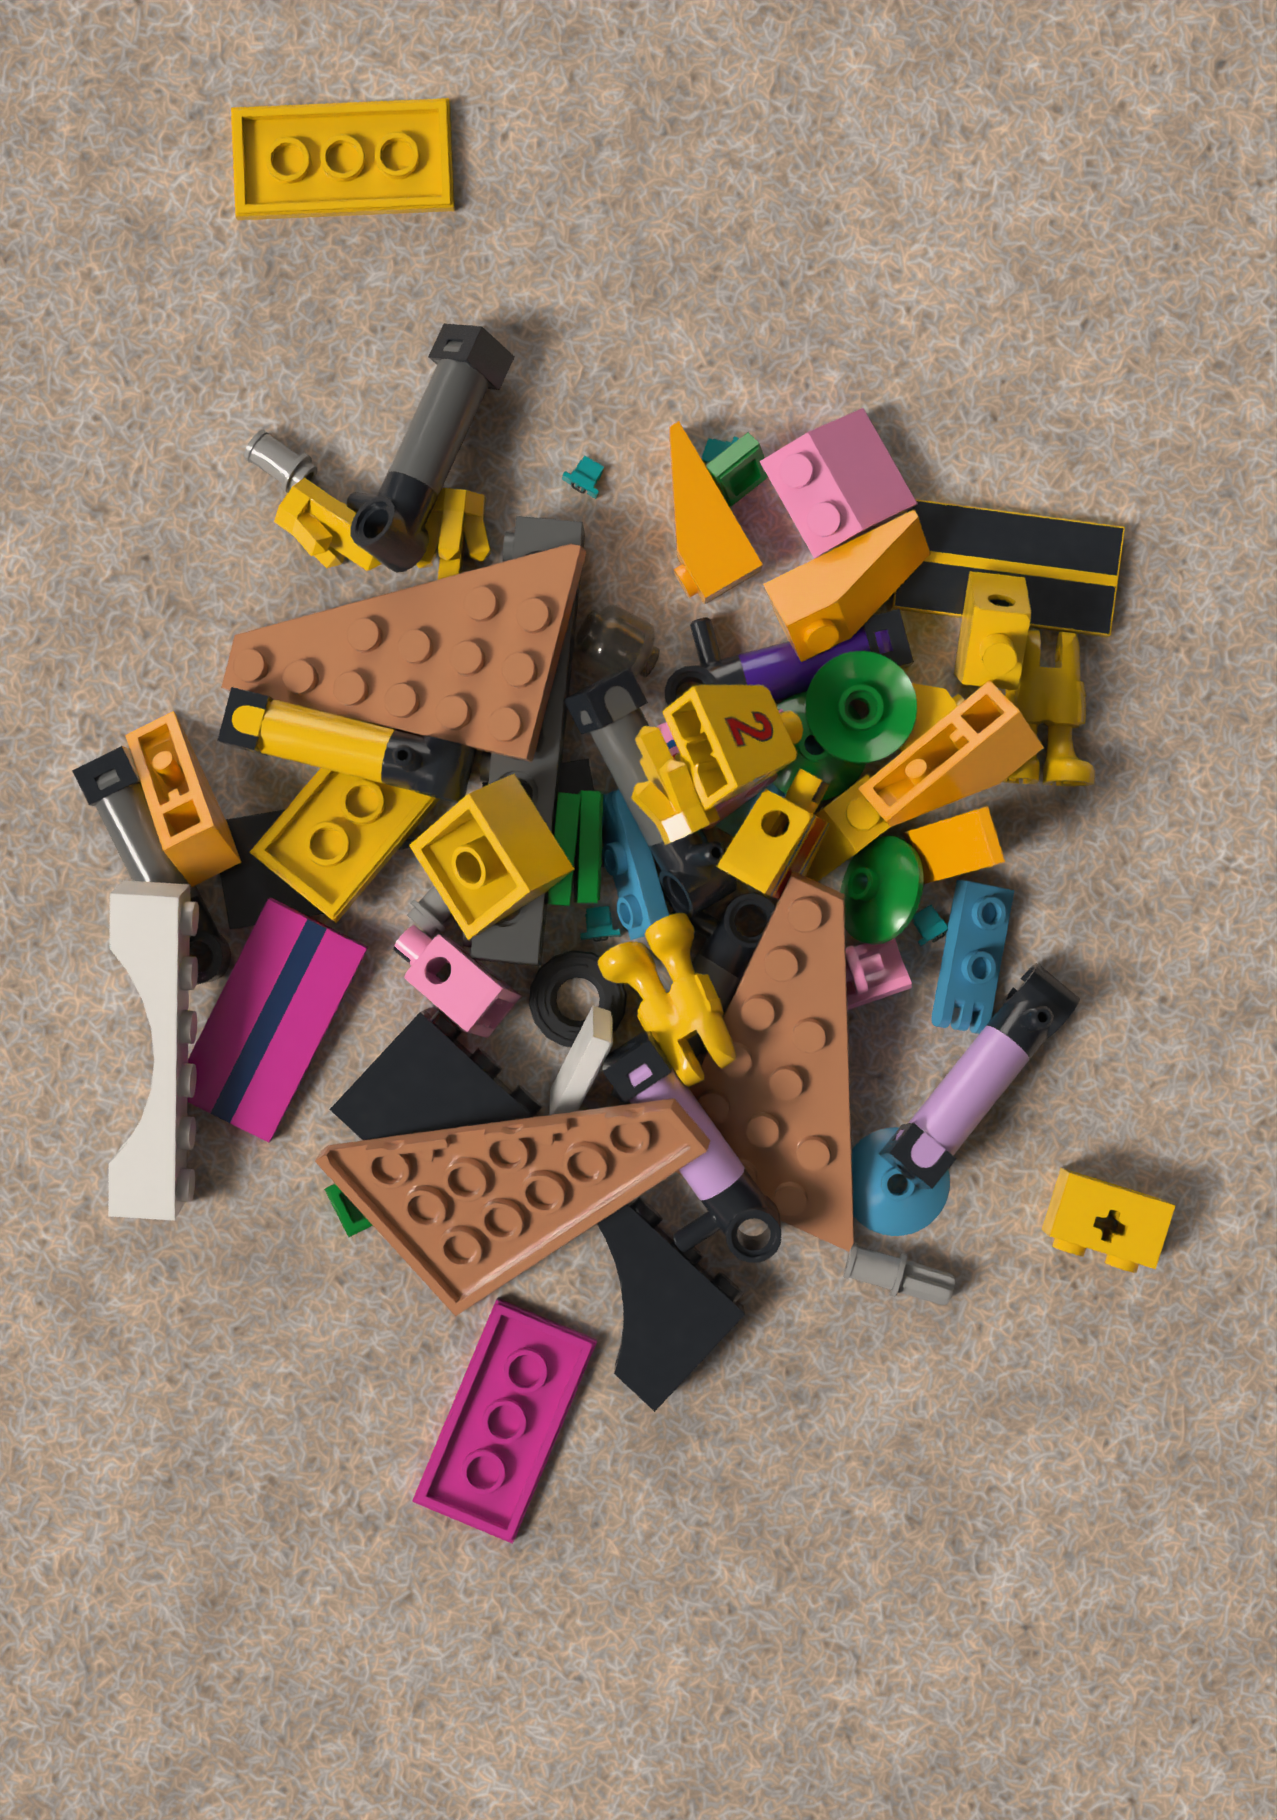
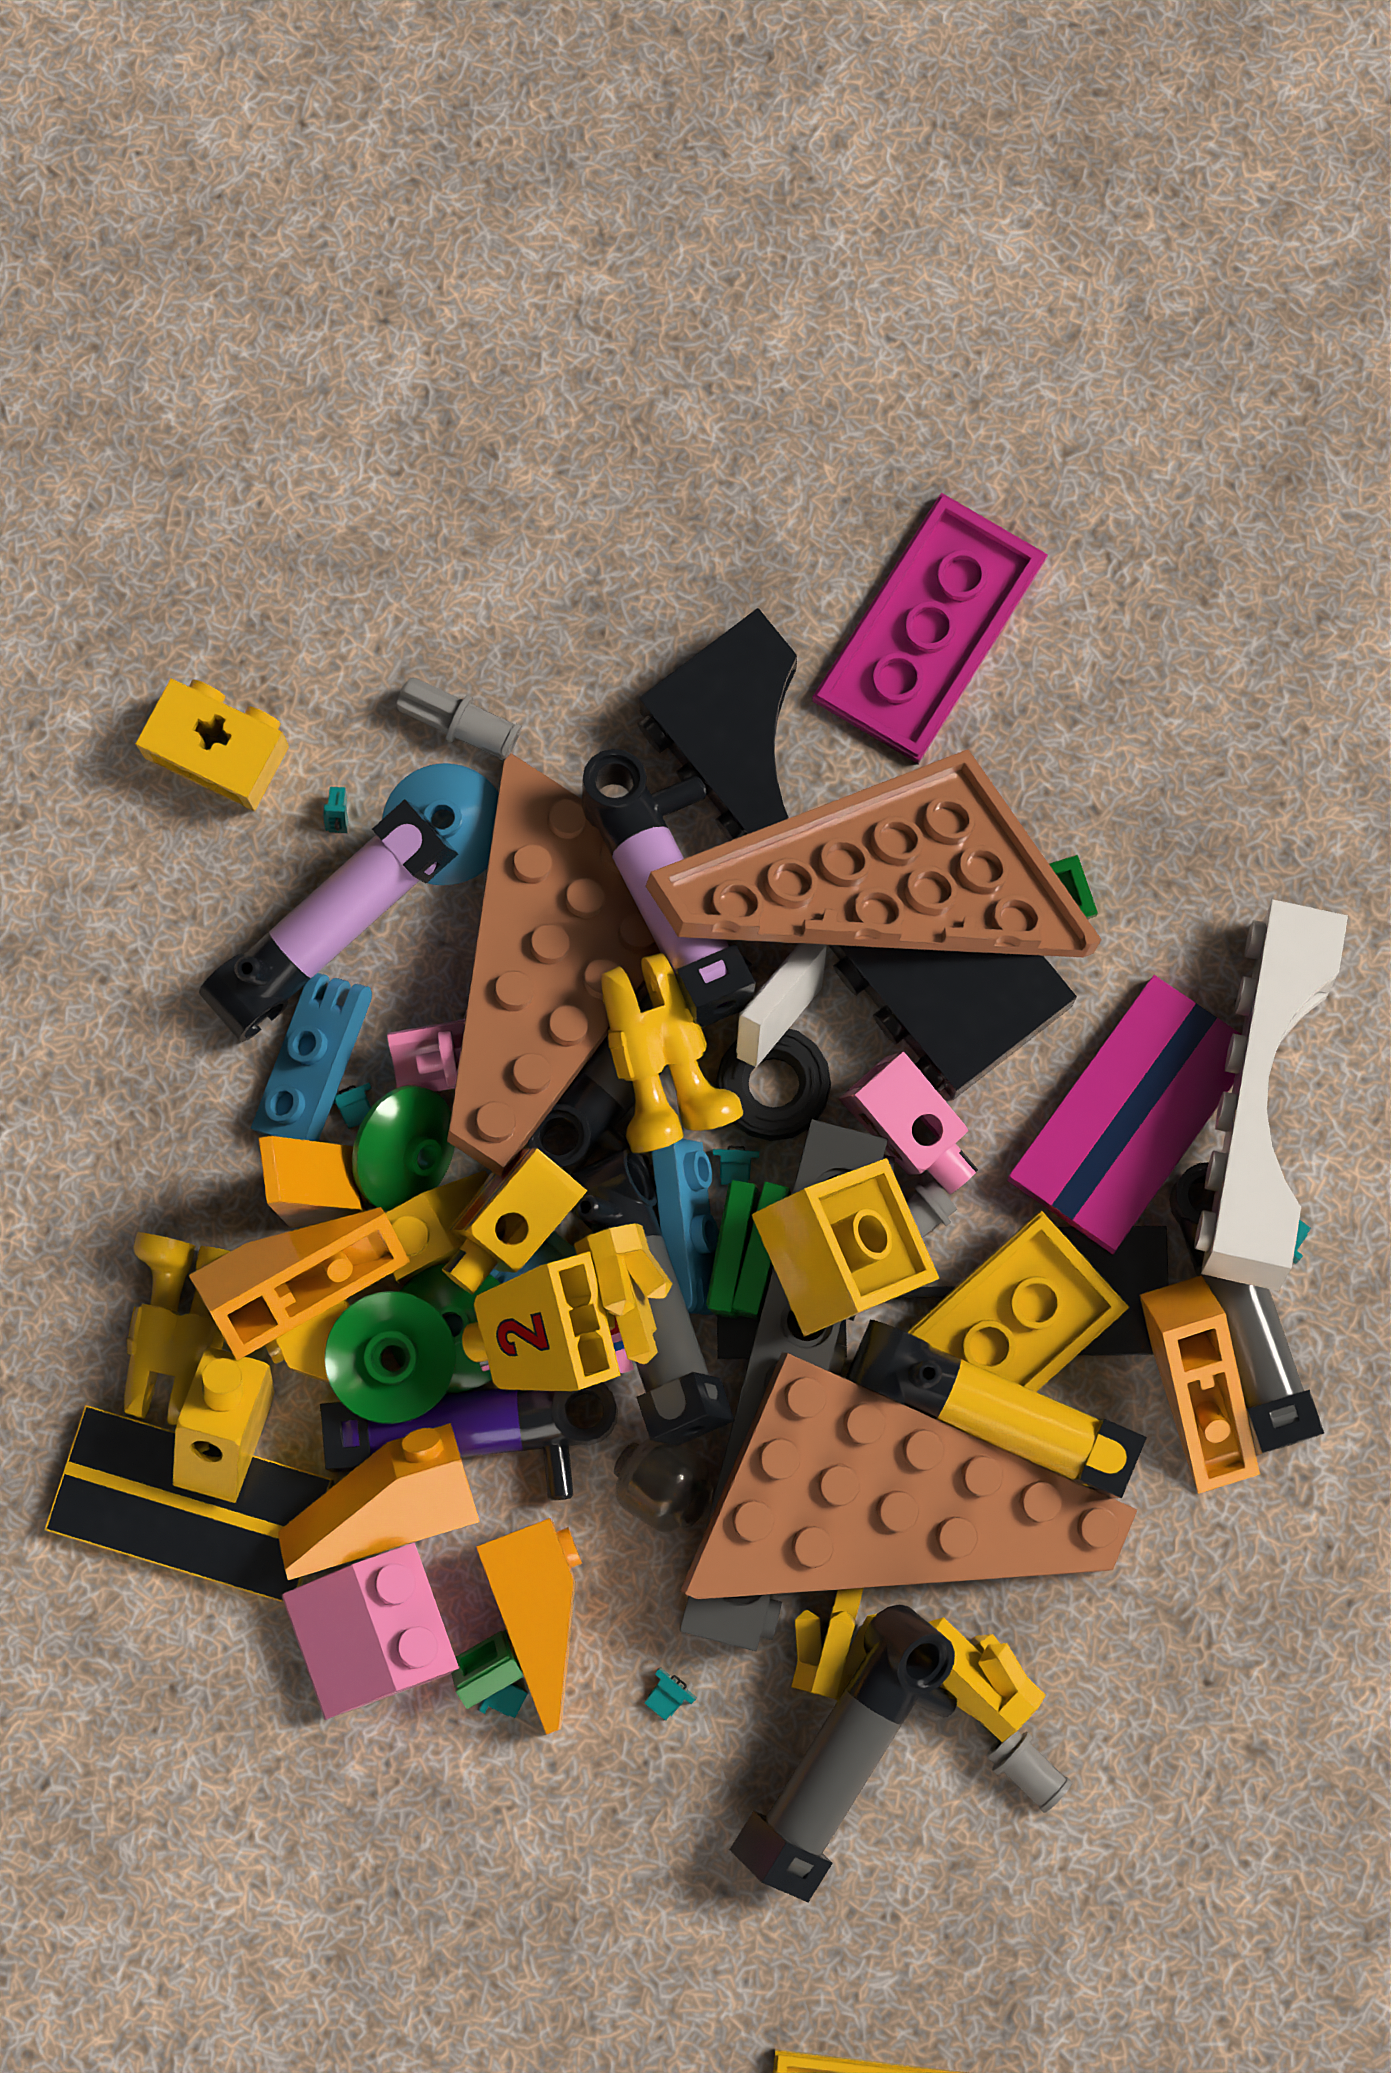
camera: 170 degrees left, 10 degrees down
(991, 1175) = (335, 812): none -> teal piece

